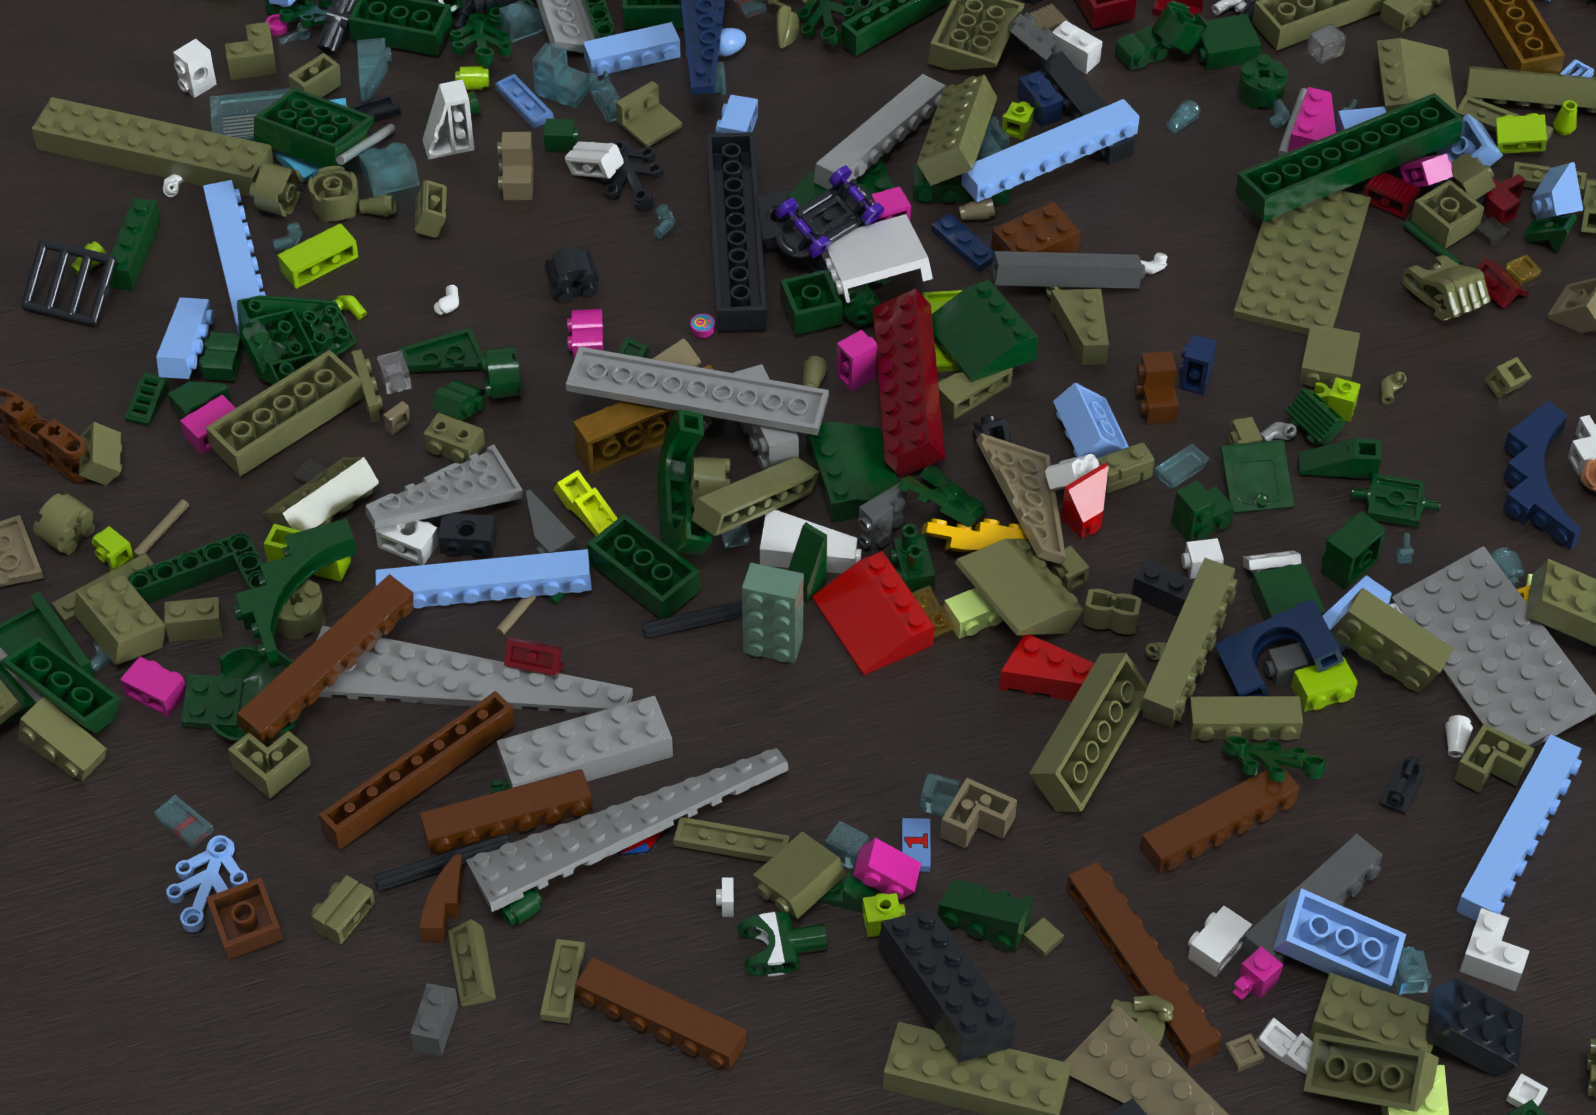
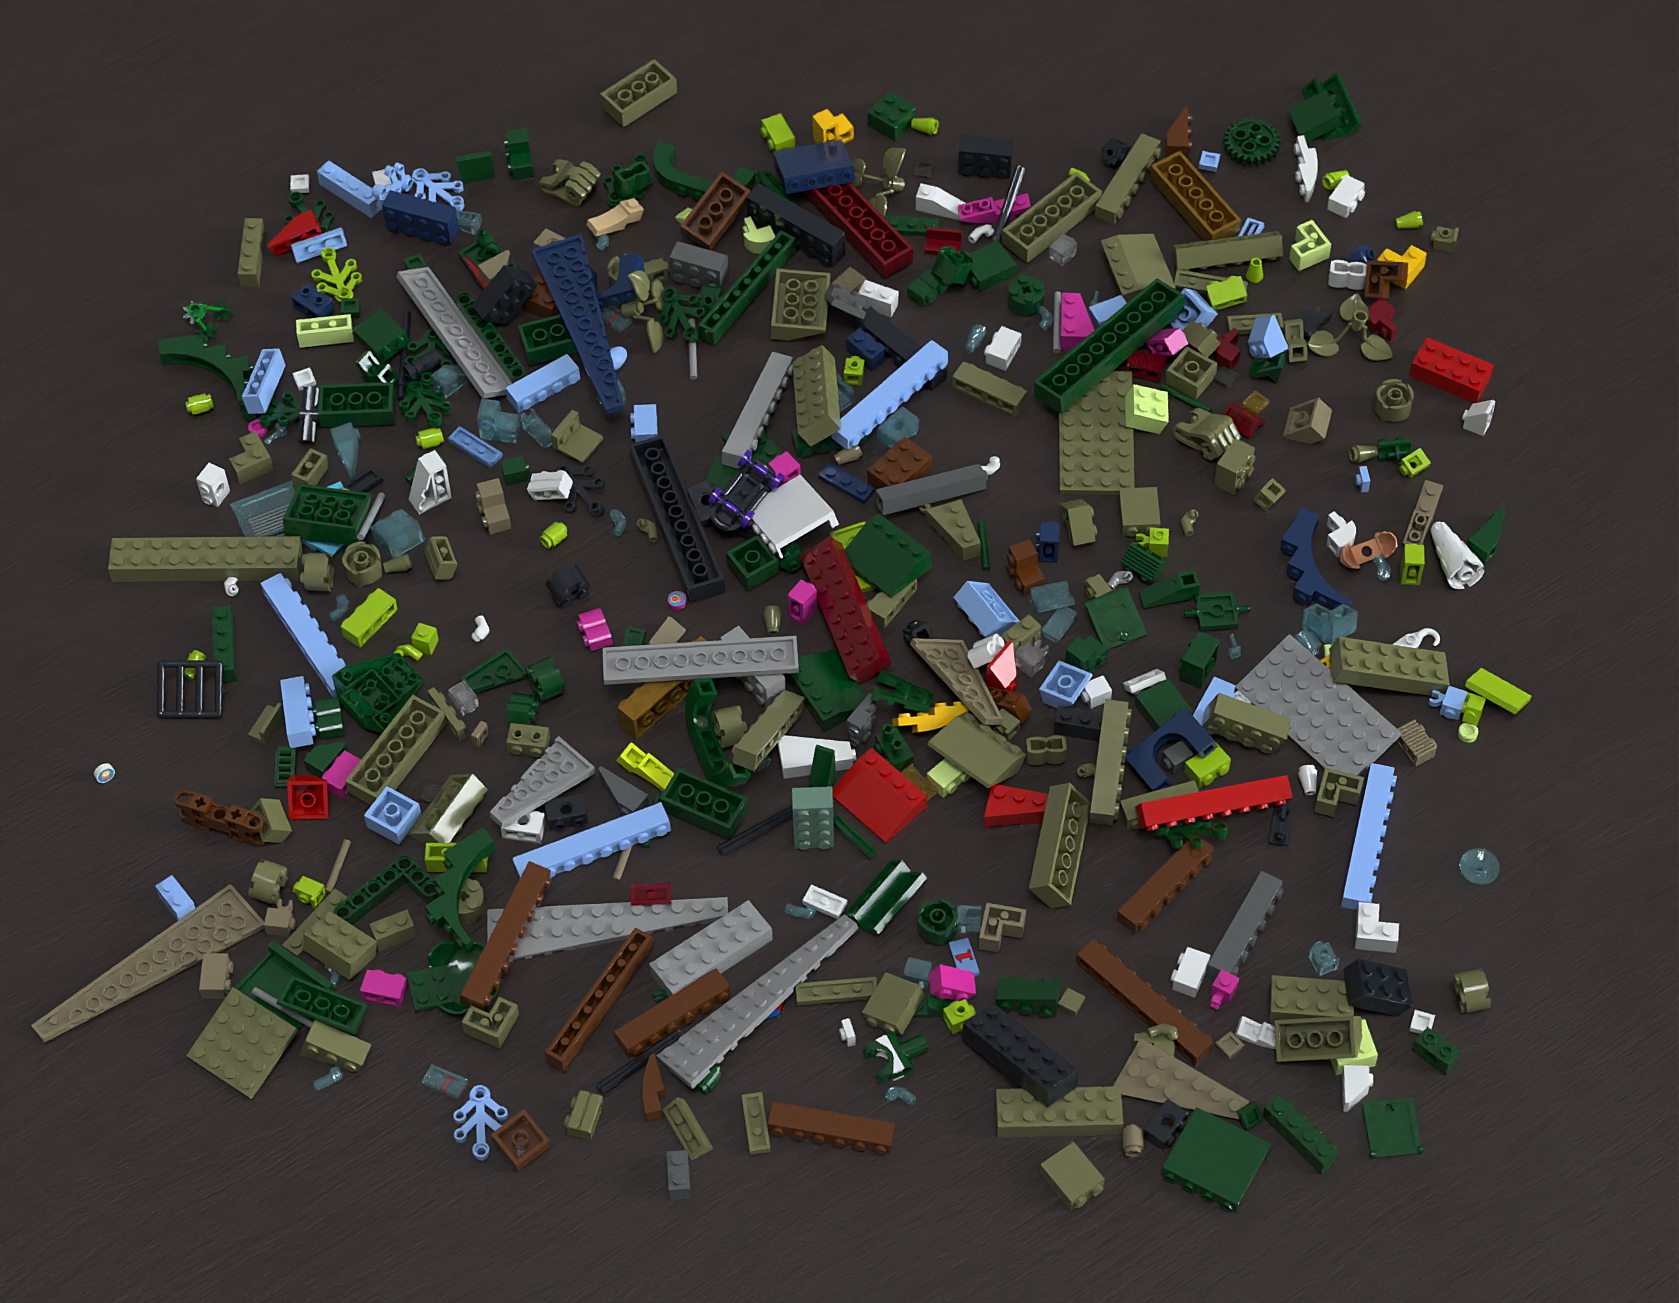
camera: 15 degrees left, 5 degrees up
(49, 776) = (334, 1076): none -> clear light blue arm
(61, 573) = (280, 920): none -> dark tan brick
(144, 346) = (267, 724): none -> olive panel
(155, 439) = (307, 797): none -> red slope
(250, 484) = (392, 815): none -> light blue brick
(374, 294) = (425, 638): none -> lime brick
(578, 216) = (553, 535): none -> lime brick
(699, 236) = (649, 528): none -> olive arm
(721, 731) = (797, 911): none -> clear light blue arm
(756, 726) = (825, 902): none -> white plate
(773, 994) = (900, 1092): none -> clear light blue arm
(825, 656) = (854, 836): none -> dark green axle
(826, 59) = (692, 355): none -> light grey bar
(837, 739) = (884, 897): none -> dark green slope
(895, 787) = (937, 921): none -> dark green brick
(1053, 187) = (900, 424): none -> clear light blue brick
(1086, 542) = (1012, 702): none -> reddish brown slope
(1114, 353) = (984, 546): none -> dark green bar
(1130, 498) = (1031, 658): none -> clear brick
(1160, 536) = (1063, 685): none -> light blue slope
(1181, 176) = (989, 388): none -> olive brick
(1181, 430) = (1051, 596): none -> clear light blue bracket
(1214, 135) = (1003, 348): none -> white brick
(1245, 351) = (1078, 517): none -> olive brick
(1316, 729) = (1213, 802): none -> red brick
(1339, 940) = (1272, 951): light blue brick -> none
(1376, 241) = (1146, 409): none -> yellowish green brick
(1471, 332) = (1235, 466): none -> olive brick
(1537, 544) = (1330, 624): none -> clear light blue brick

